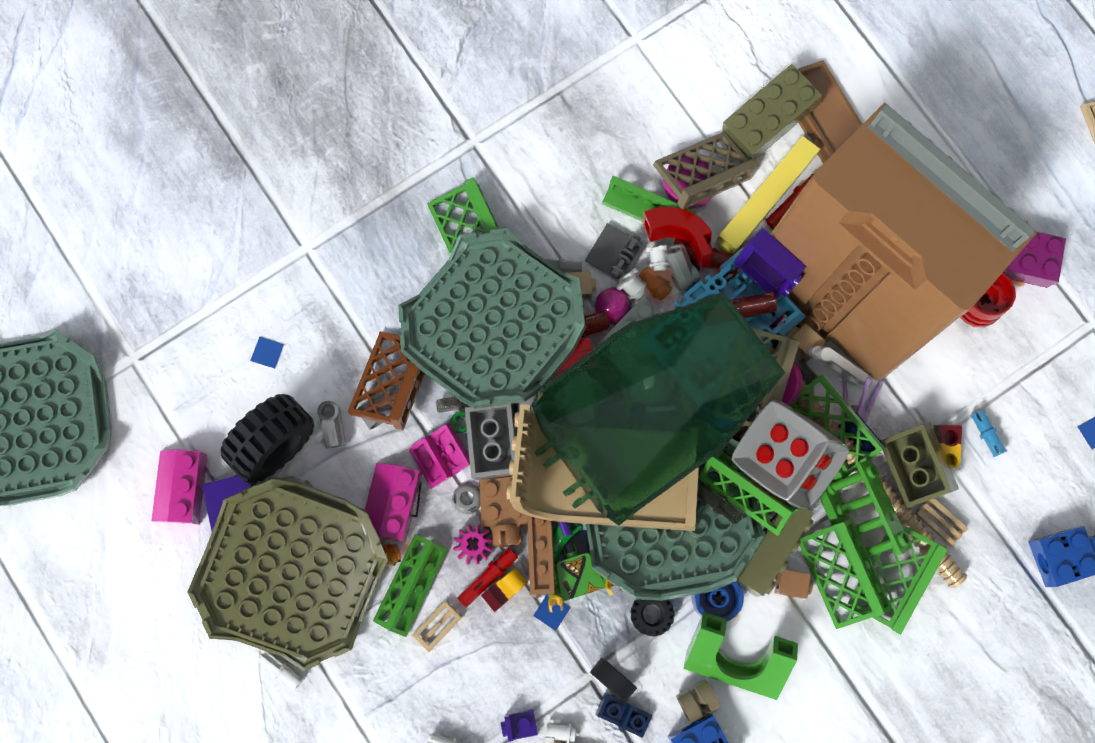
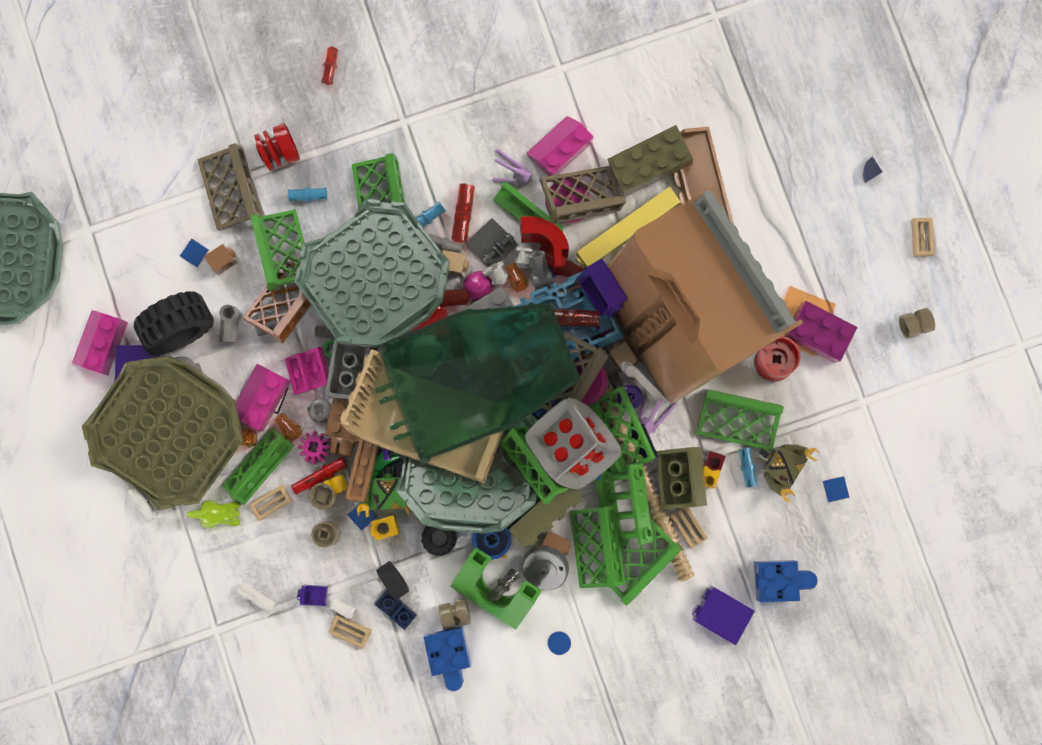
camera: 20 degrees right, 5 degrees up
(302, 350) = (221, 259): none -> medium nougat brick
(308, 259) = (244, 182): none -> dark tan fence
(336, 203) = (276, 147): none -> red wheel
(352, 324) = (264, 246): none -> bright green fence
(371, 99) = (330, 65): none -> clear red axle
(372, 658) = (212, 514): none -> lime animal
(385, 250) = (307, 194): none -> dark azure pin
(434, 528) = (288, 427): none -> clear orange cone
(502, 600) = (322, 496): none -> dark tan wheel
(516, 646) = (326, 534): none -> dark tan wheel
(536, 235) = (429, 215): none -> dark azure pin
(572, 226) = (463, 213): none -> clear red axle
(595, 619) = (393, 525): none -> yellow brick
(627, 165) = (521, 173): none -> lavender plant
(663, 122) = (561, 146): none -> dark pink slope
(746, 649) = (503, 585): none -> clear smoke axle
(791, 614) = (545, 567): none -> dark grey wheel
(830, 702) = (559, 643): none -> blue sticker
(835, 380) = (636, 392): none -> dark purple head
(961, 360) = (743, 403): none -> bright green fence
(1014, 614) = (722, 614): none -> dark purple brick
(1019, 63) = (871, 170): none -> dark blue tile
(1030, 421) = (784, 466): none -> olive torso

